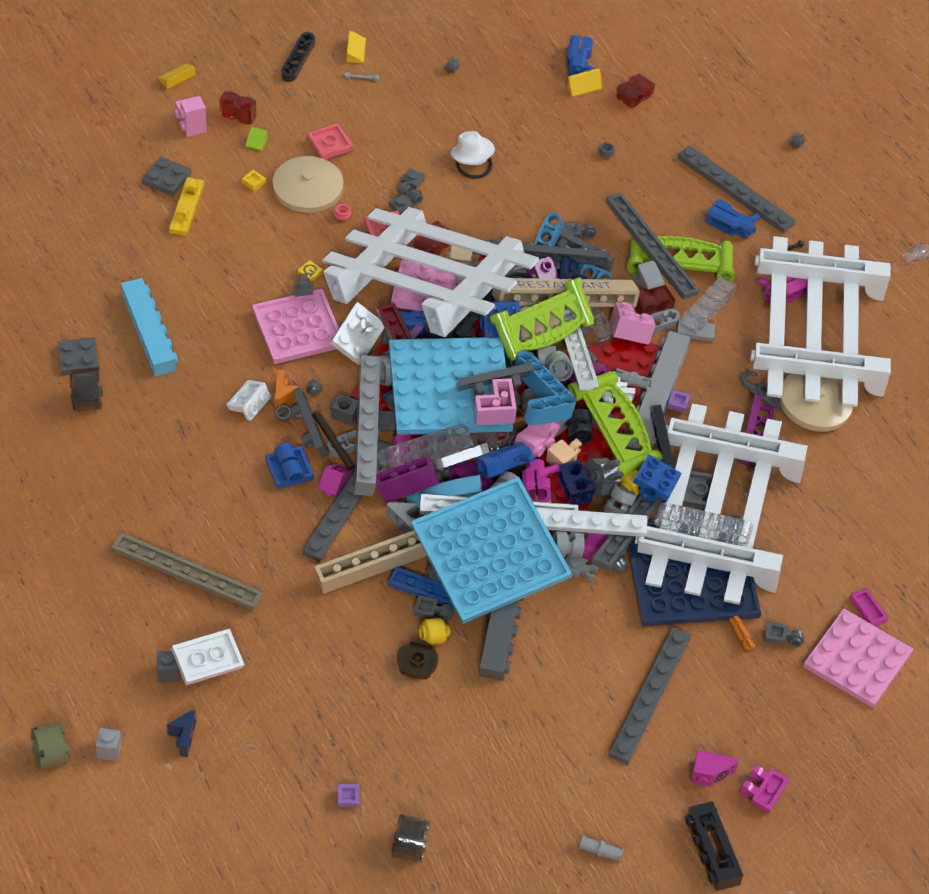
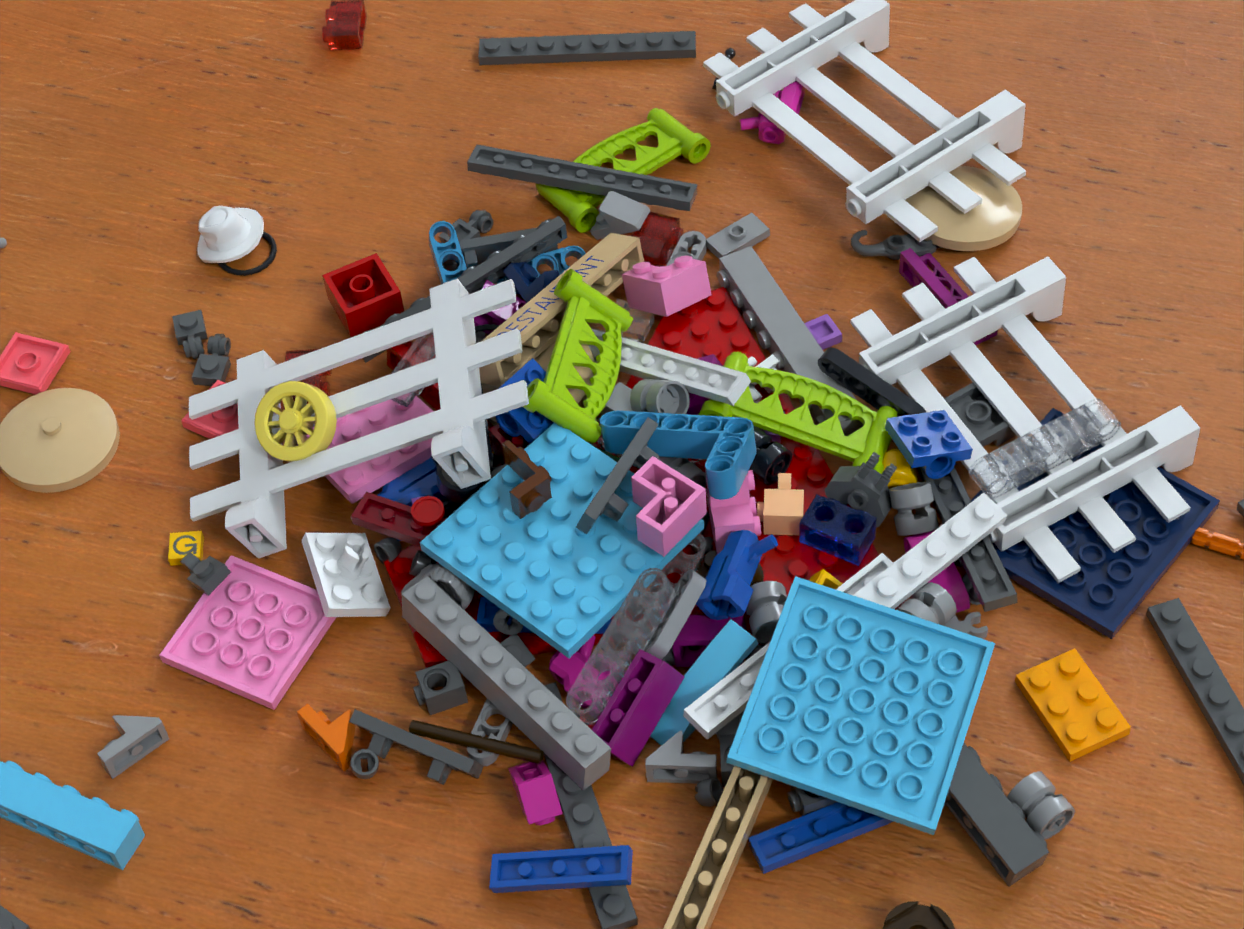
camera: 35 degrees left, 0 degrees up
(206, 331) = (138, 739): none -> light grey slope
(250, 399) = (295, 784): white bracket -> none
(288, 466) = (453, 830): blue plate -> none
(310, 514) = (561, 869): none -> blue plate
(313, 387) = (365, 693): dark grey hinge -> none
(342, 212) = (145, 438): coral plate -> none
(397, 250) = (295, 421): none -> light yellow wheel
(408, 330) = (427, 511): none -> red piece
(427, 607) = (849, 857): dark grey plate -> none
(434, 631) = (896, 880): yellow head -> none
(452, 65) = (86, 156): dark grey plate -> none
(453, 355) = (534, 489): none -> reddish brown bracket
(460, 255) = (365, 370): tan brick -> none
(497, 221) = (363, 294): none -> red brick
(525, 656) = (1040, 805): none -> light grey wheel
(537, 475) = (791, 560): dark pink piece -> none
(575, 61) = (232, 35): blue piece -> none
(584, 82) = (274, 59): yellow slope -> none
(592, 635) = (1072, 704): none -> light orange plate
(606, 150) = (390, 115): dark grey plate -> none
(634, 379) = (753, 345): light grey pin -> none
(708, 304) = (723, 195): clear beam -> none
(730, 221) = (628, 85): blue piece -> none

